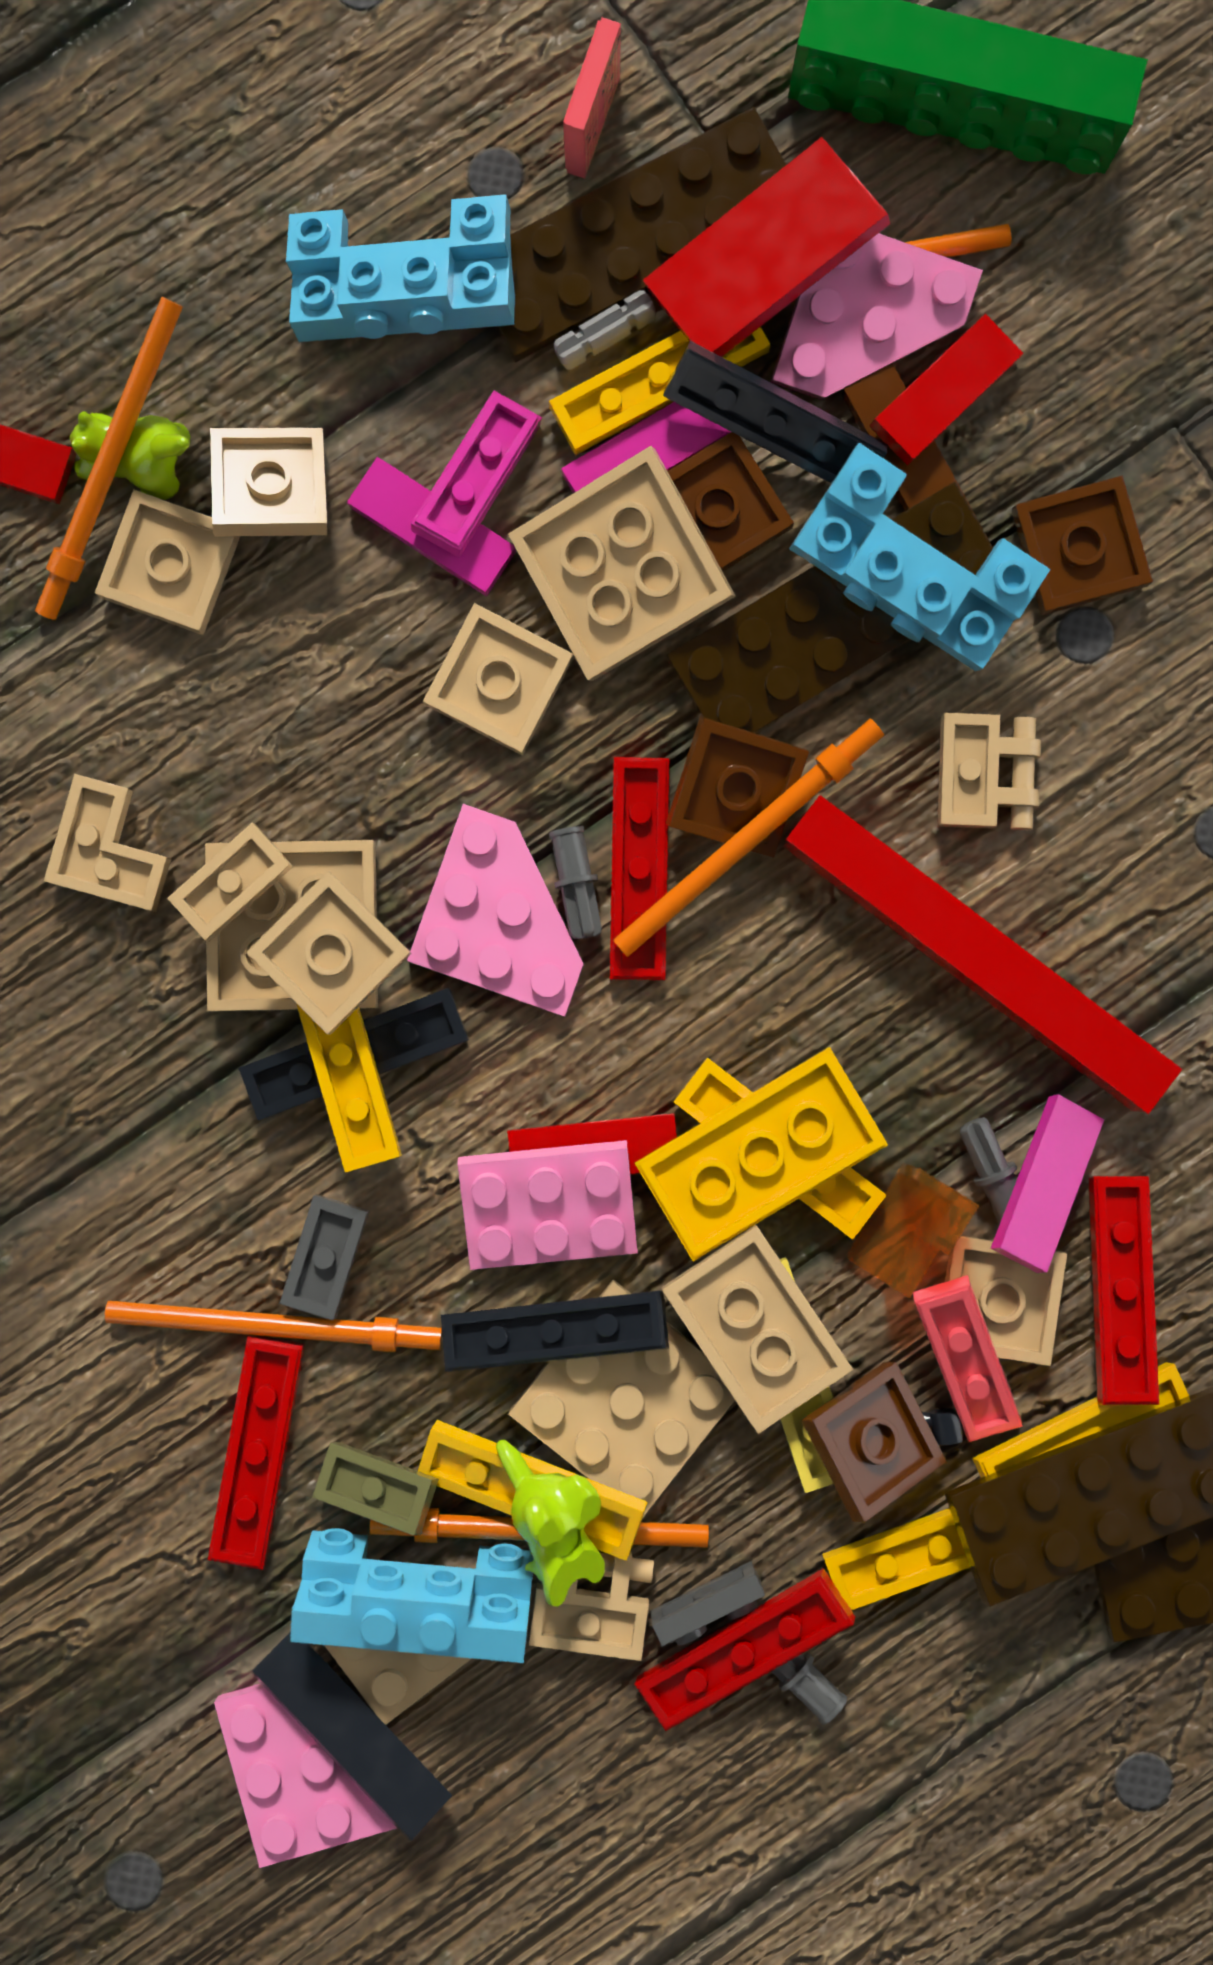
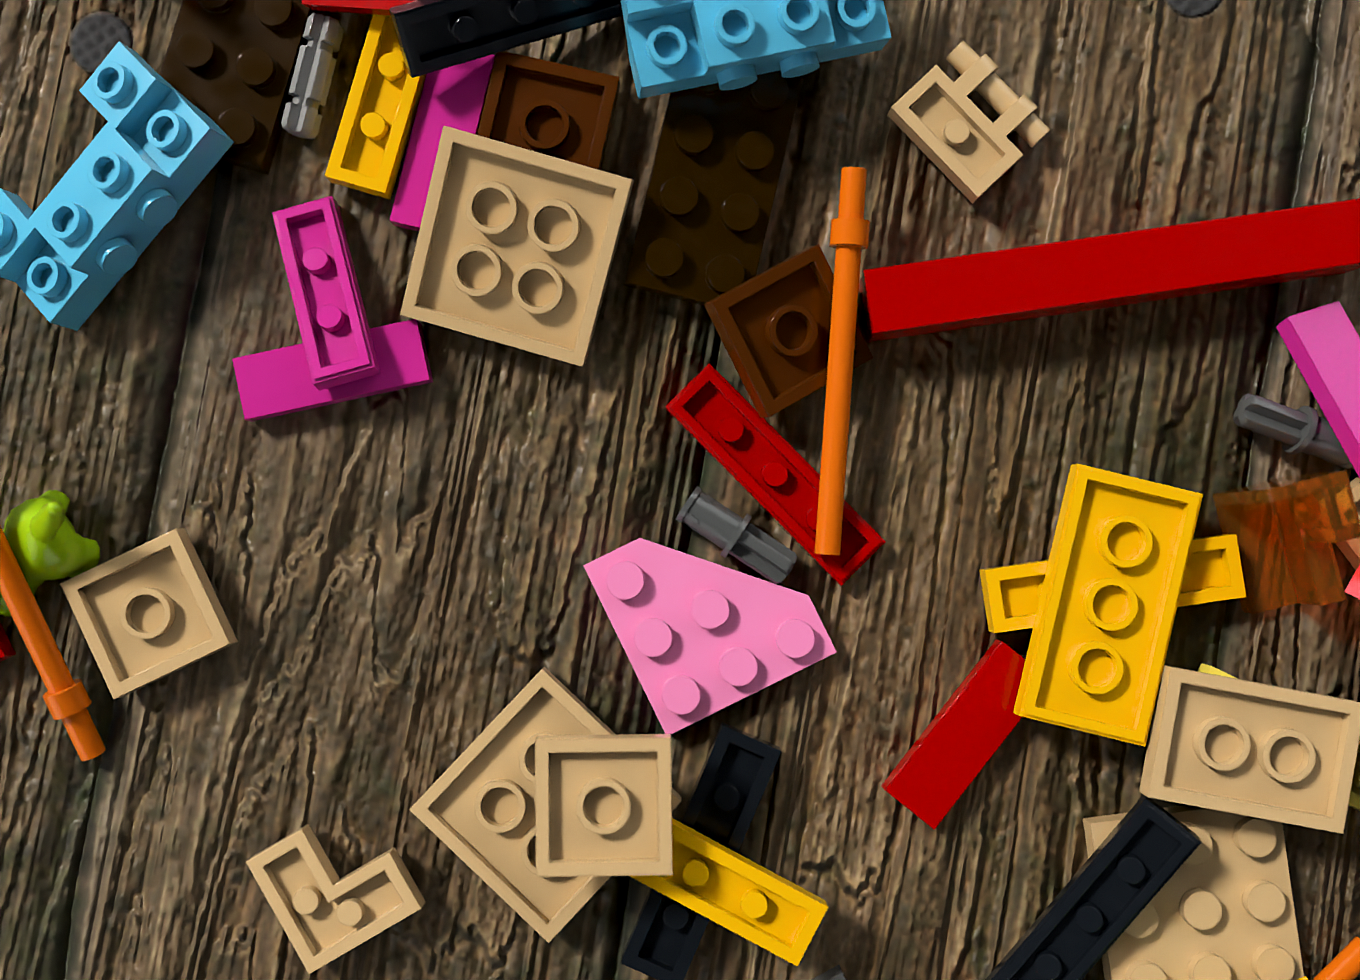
camera: 50 degrees left, 0 degrees up
(230, 882) = (462, 824): tan plate -> none
(268, 482) = (163, 468): plate -> none
(498, 679) = (509, 437): tan plate -> none
(547, 1205) = (977, 816): bright pink plate -> none

